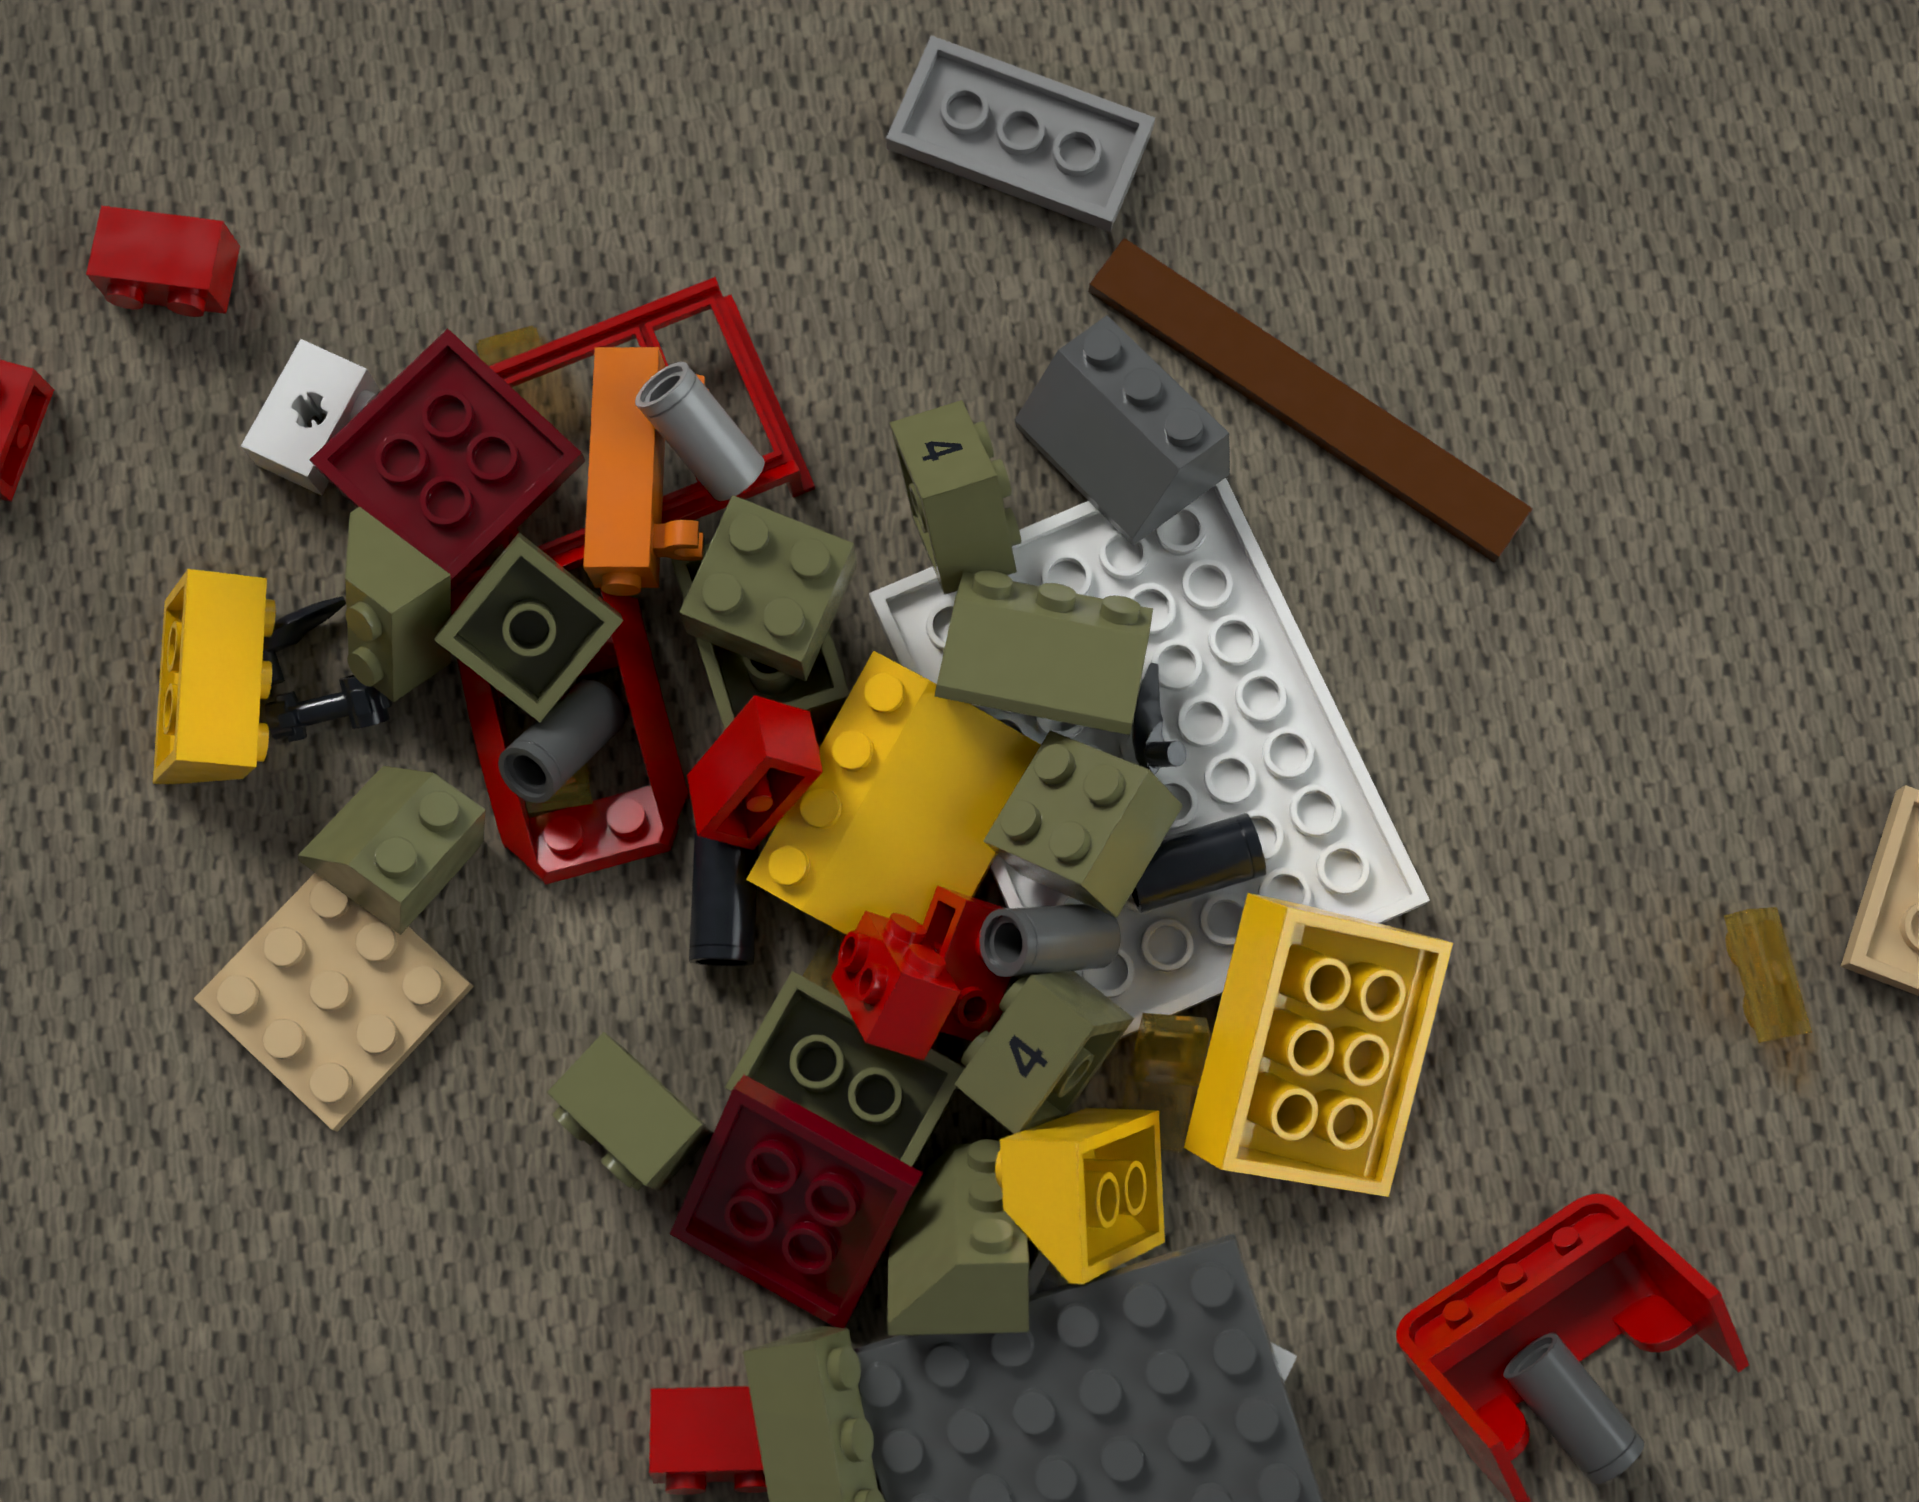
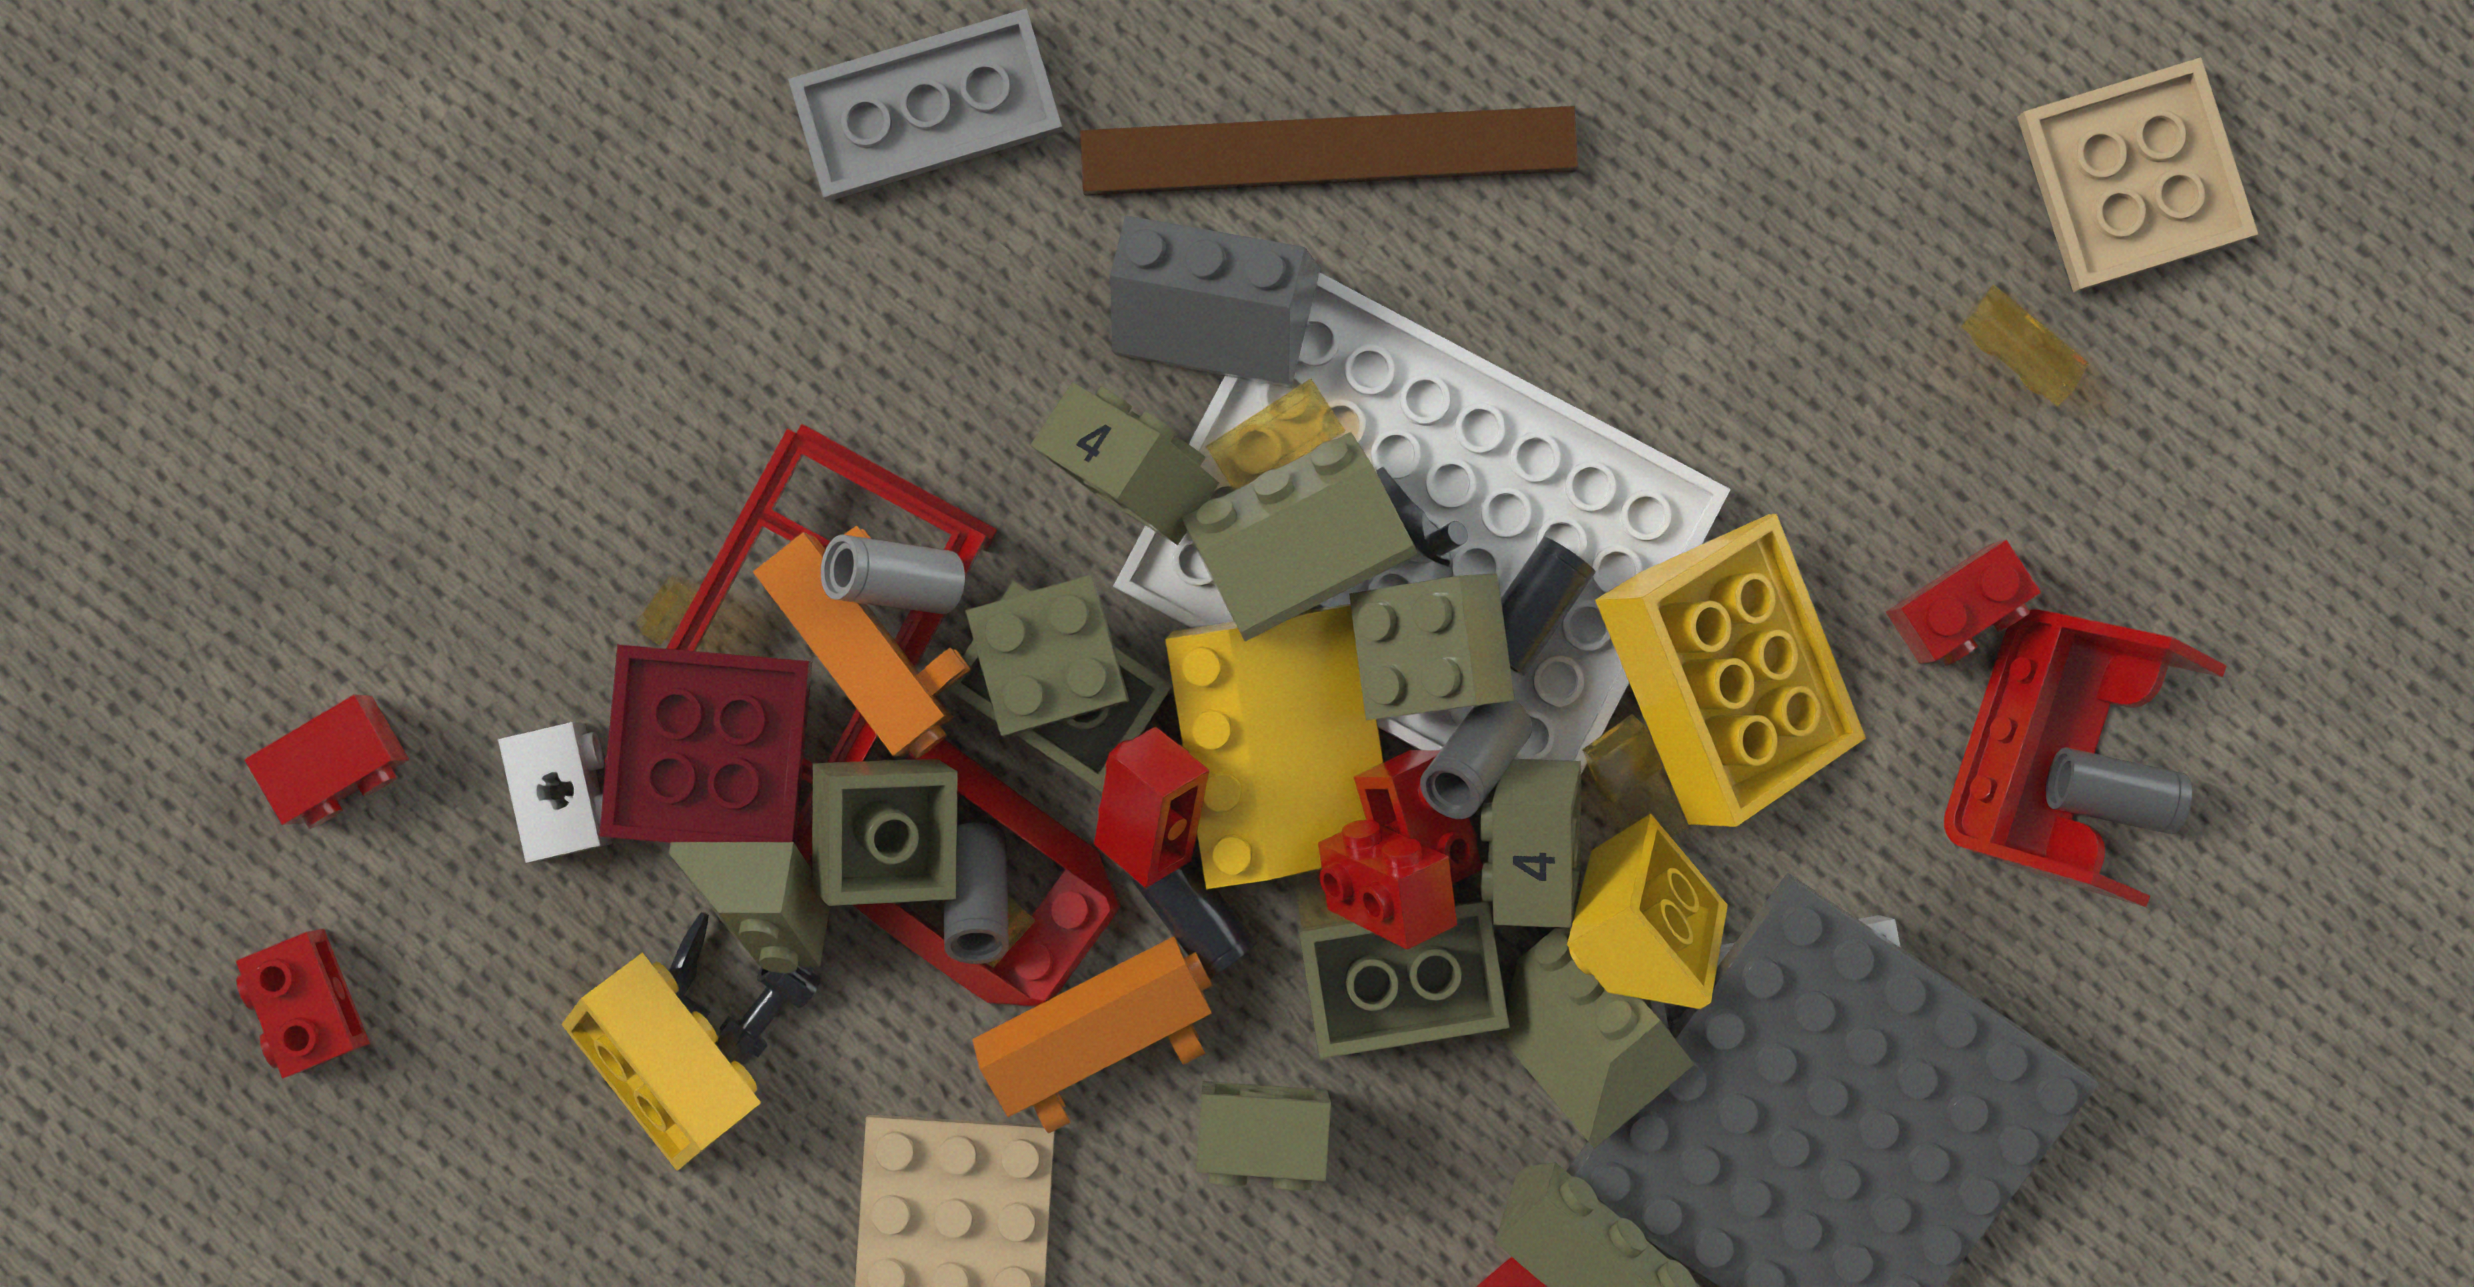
camera: 40 degrees left, 10 degrees up
(397, 843) = (909, 1070): olive slope -> none
(565, 923) = (1094, 1028): none -> orange brick
(794, 1202) = (1438, 1099): dark red plate -> none
(1092, 568) = (1275, 435): none -> clear yellow tile
(1557, 1143) = (1963, 602): none -> red brick

